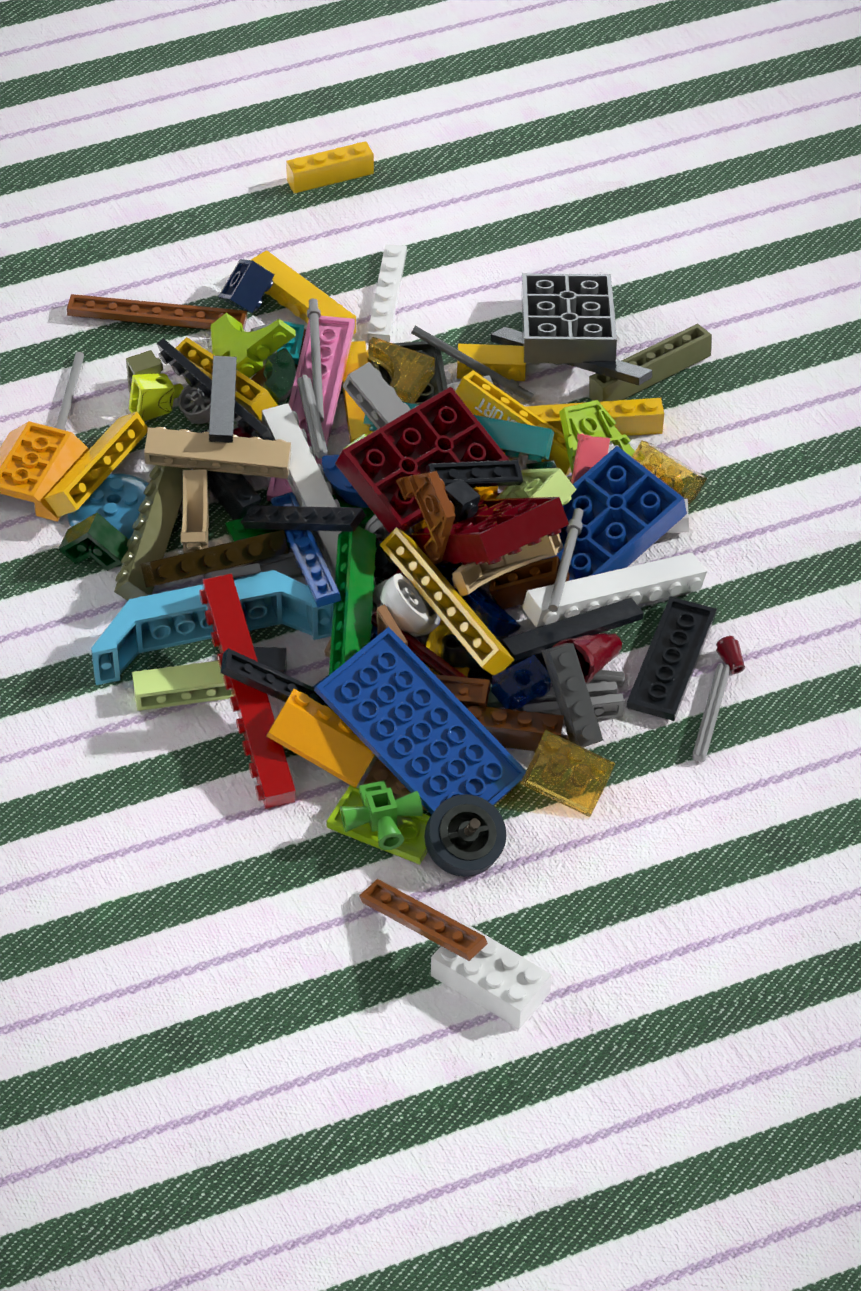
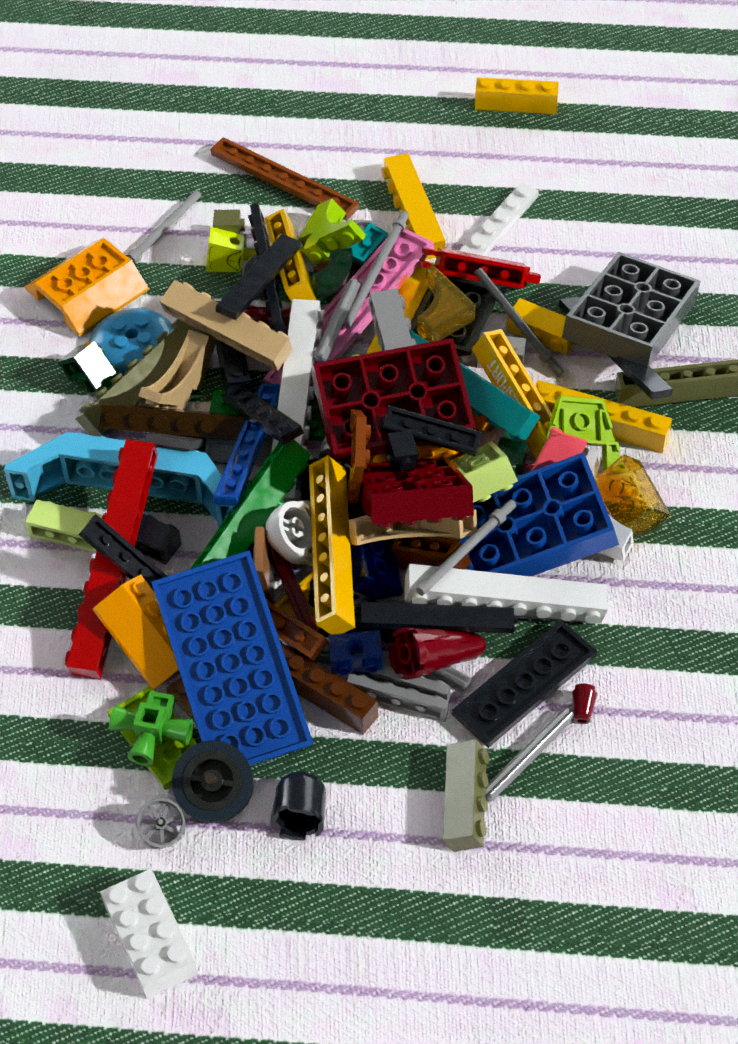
camera: 30 degrees right, 5 degrees up
(97, 464) = (133, 297): yellow brick -> none
(247, 285) = (370, 180): dark blue slope -> none
(400, 329) = (465, 264): none -> red hinge
(423, 919) = (116, 852): dark orange plate -> none
(441, 886) = (161, 823): none -> light grey wheel
(552, 824) = (299, 806): none -> black cylinder
(567, 773) = (346, 760): clear yellow slope -> none
(572, 695) = (390, 685): dark grey brick -> none
(684, 761) = (465, 795): none -> brick

